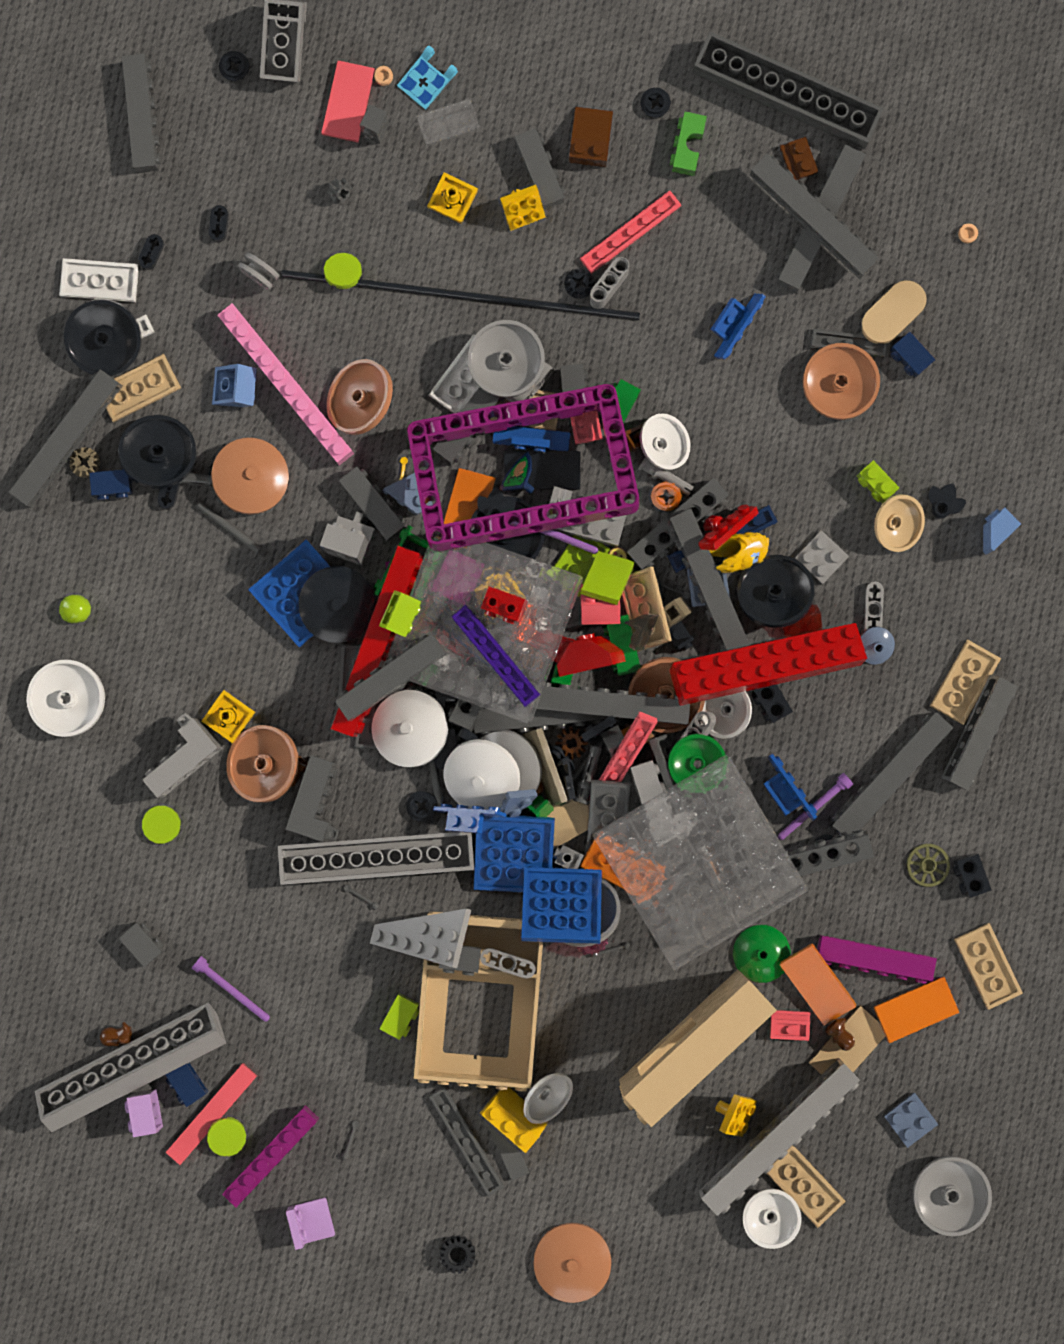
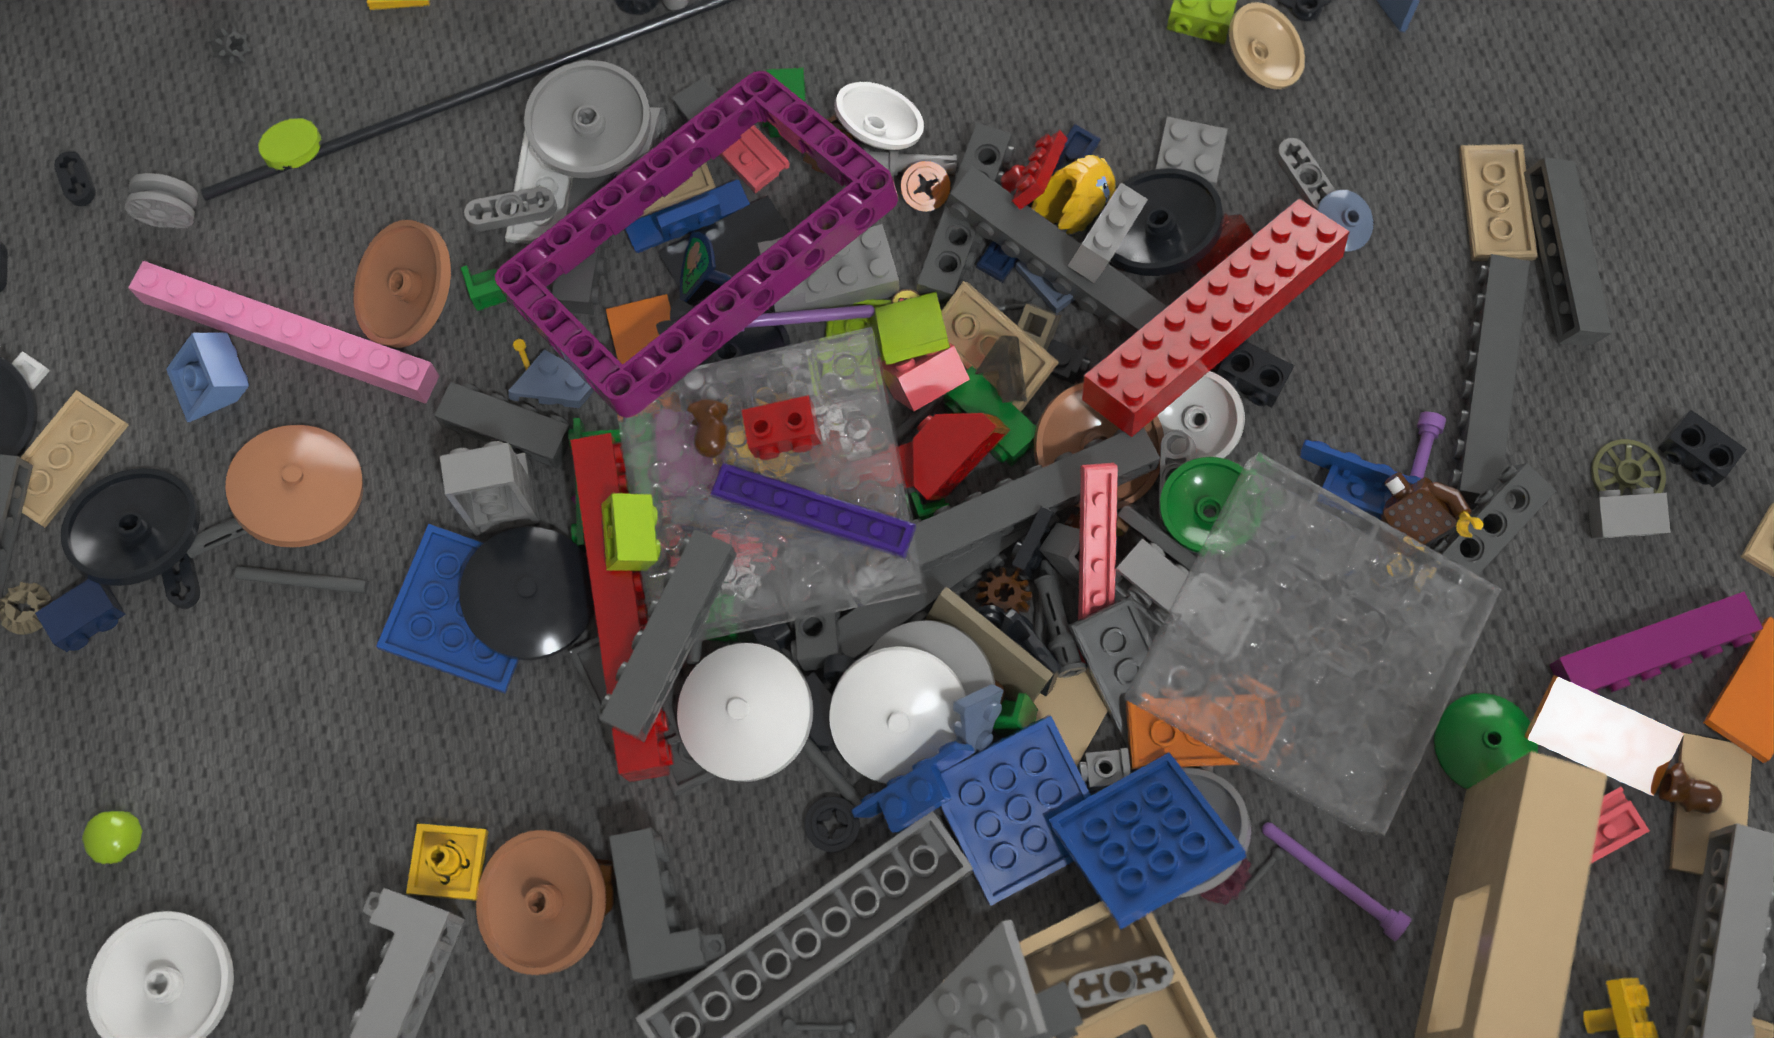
camera: 30 degrees left, 15 degrees down
(402, 416) = (483, 288): none -> green panel
(454, 380) = (522, 216): none -> light grey beam
(469, 584) = (711, 430): none -> reddish brown animal
(658, 1007) = (1392, 922): none -> medium lavender piece
(739, 586) = (1107, 233): none -> light grey brick
(801, 829) = (1426, 509): none -> reddish brown torso
(909, 886) = (1628, 515): none -> light grey brick

